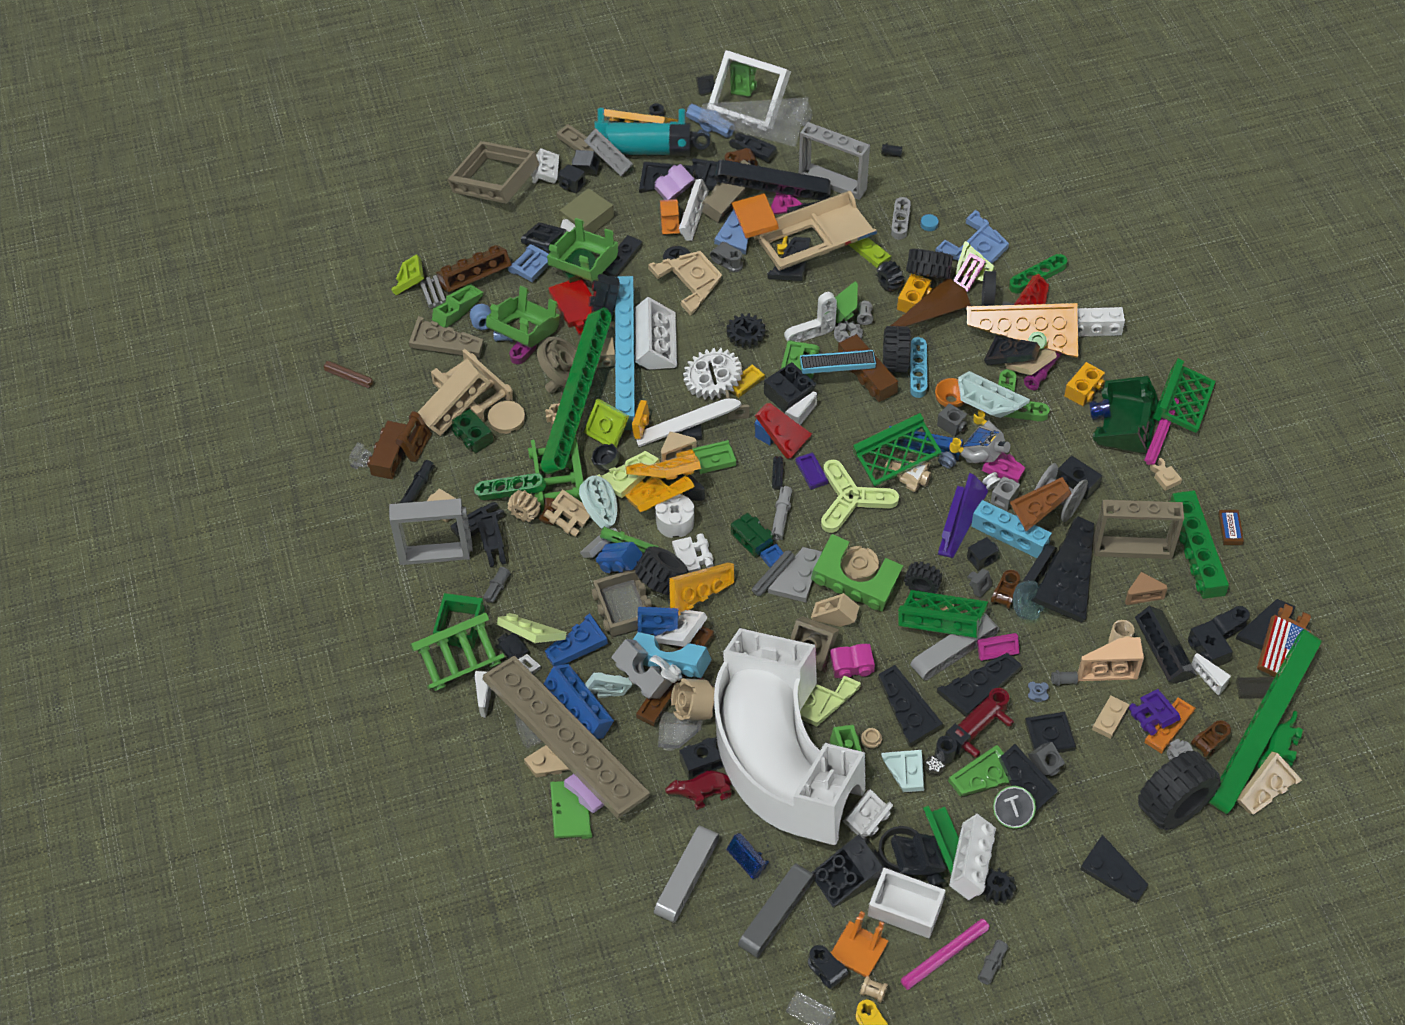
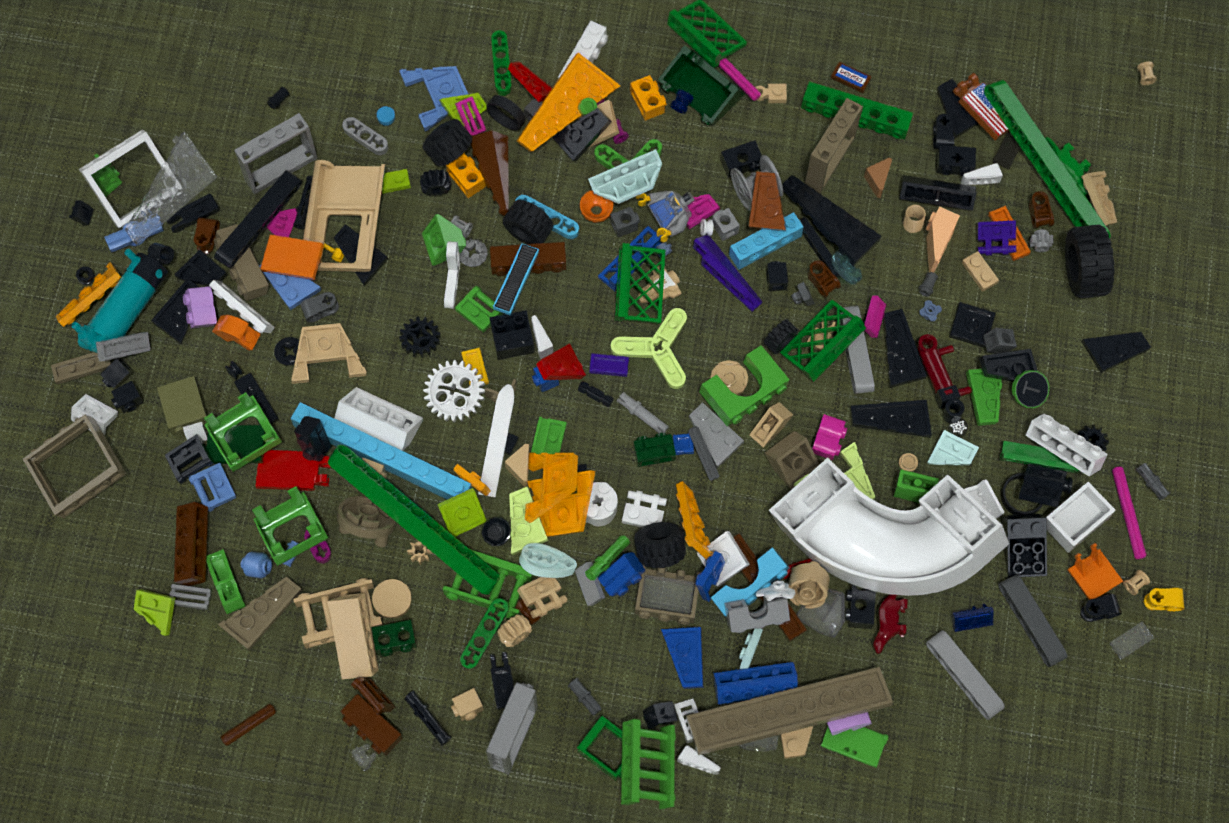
camera: 65 degrees left, 15 degrees up
(491, 536) = (532, 675): black hinge -> none
(530, 630) = (657, 689): yellowish green wing -> none
(636, 230) = (233, 370): none -> black bush

